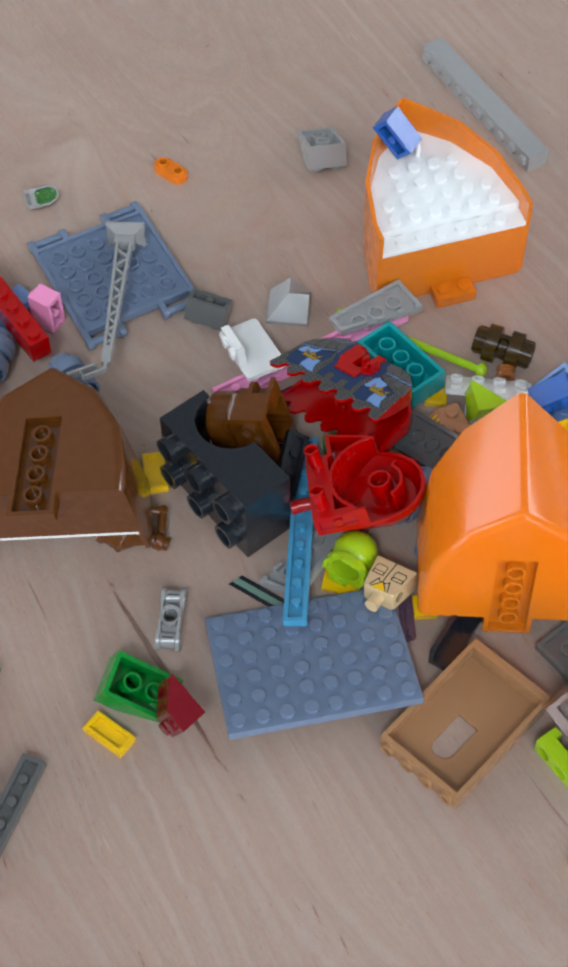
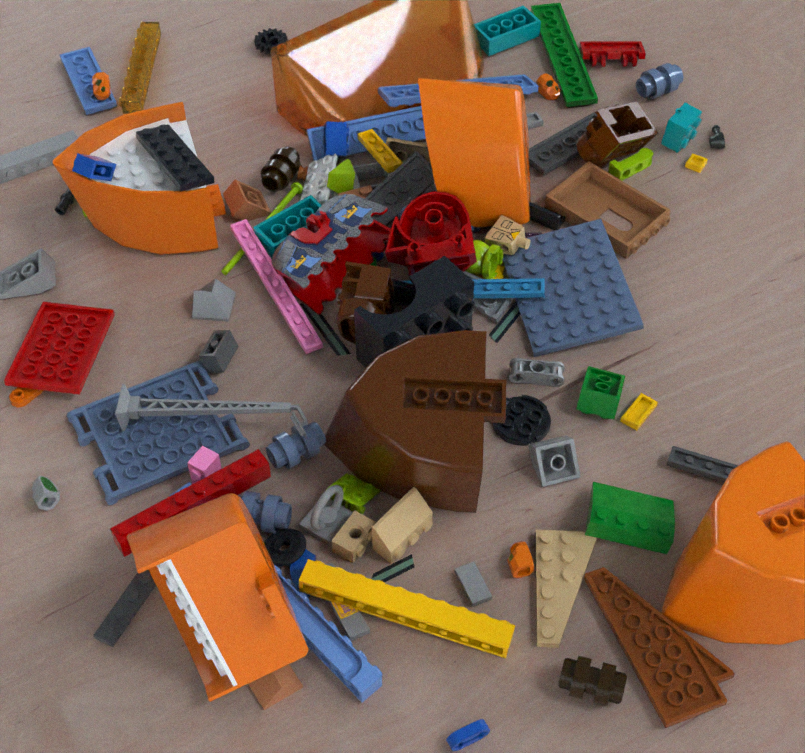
camera: 90 degrees left, 5 degrees down
(38, 630) = (554, 460): none -> light grey slope
(105, 604) = (525, 421): none -> black tile
(176, 707) = (624, 356): dark red slope -> none
(221, 184) = (60, 348): none -> red plate
(250, 348) = (267, 321): white bracket -> none
(377, 308) = (240, 233): light grey wing -> none
(433, 205) = (174, 157): none -> black plate
(449, 321) = (245, 201): none -> nougat slope

